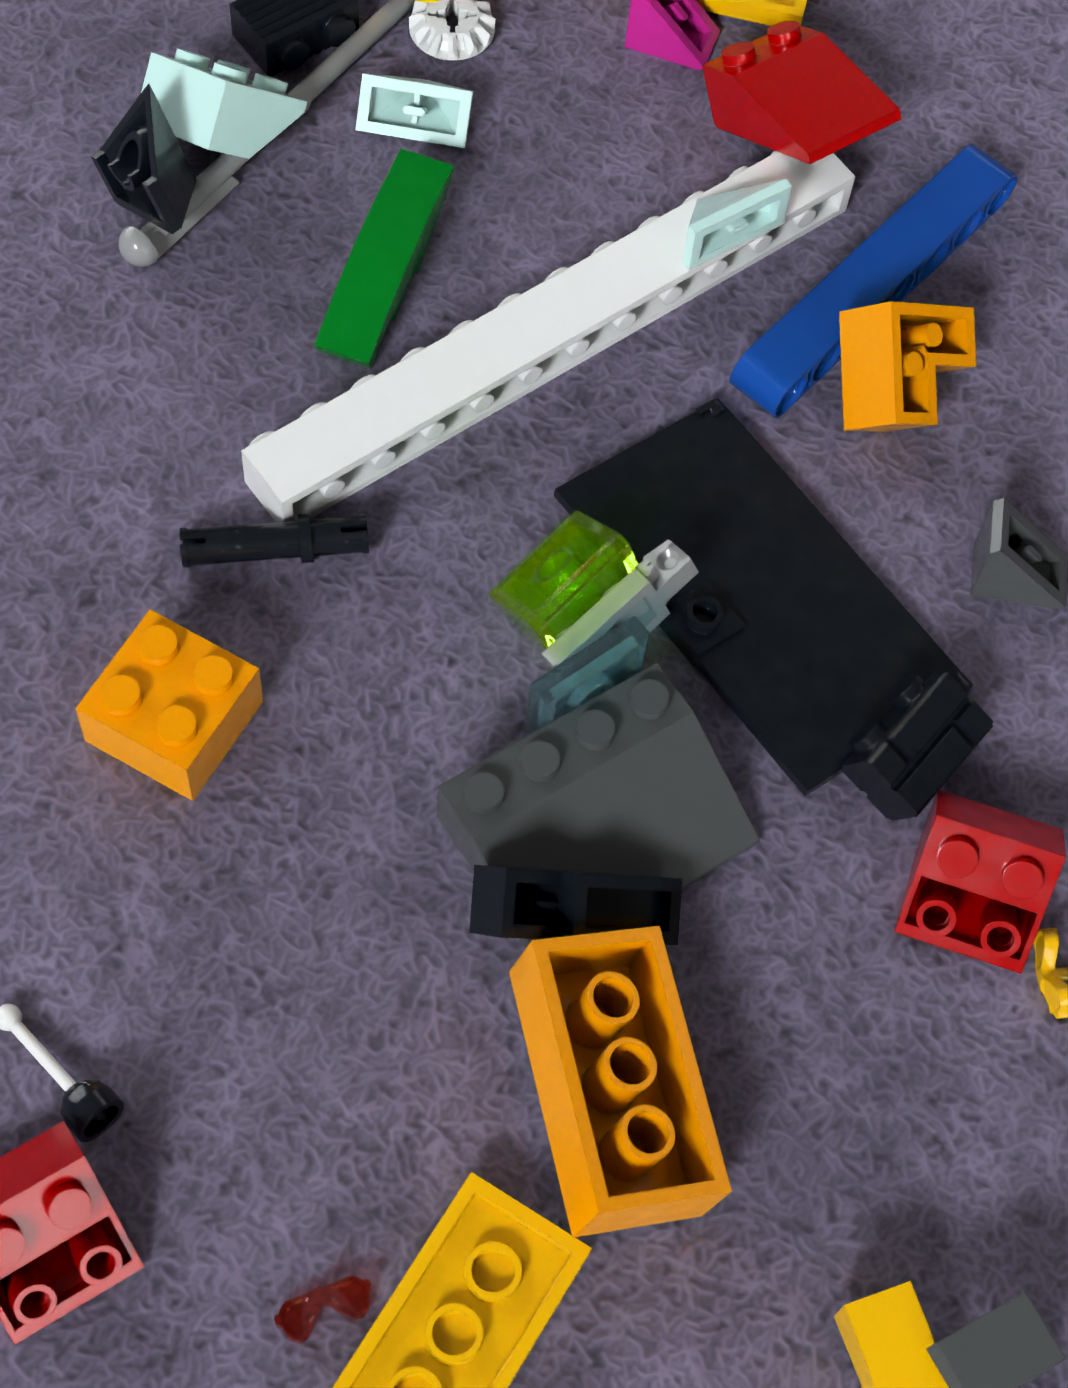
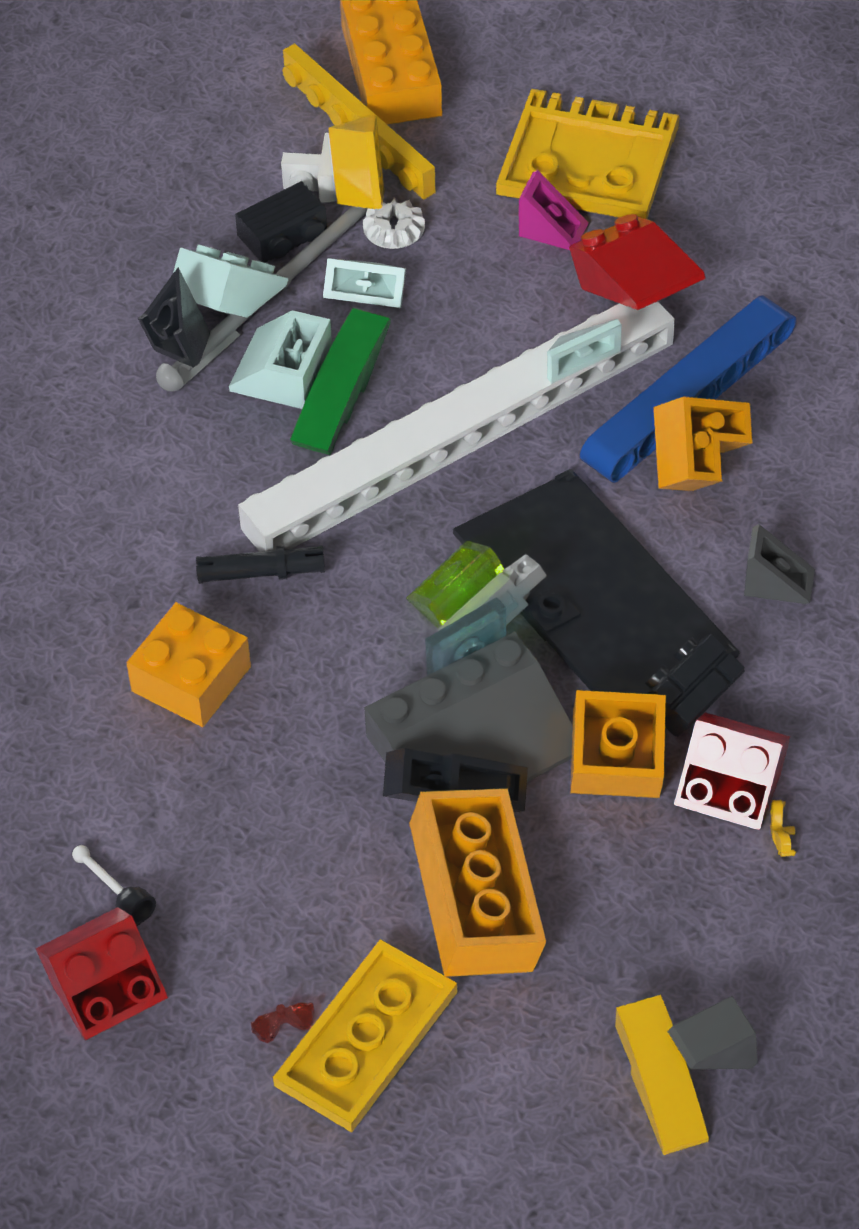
camera: 10 degrees right, 10 degrees down
(303, 223) = (284, 359): none -> light aqua slope
(817, 844) = (618, 744): none -> light orange brick

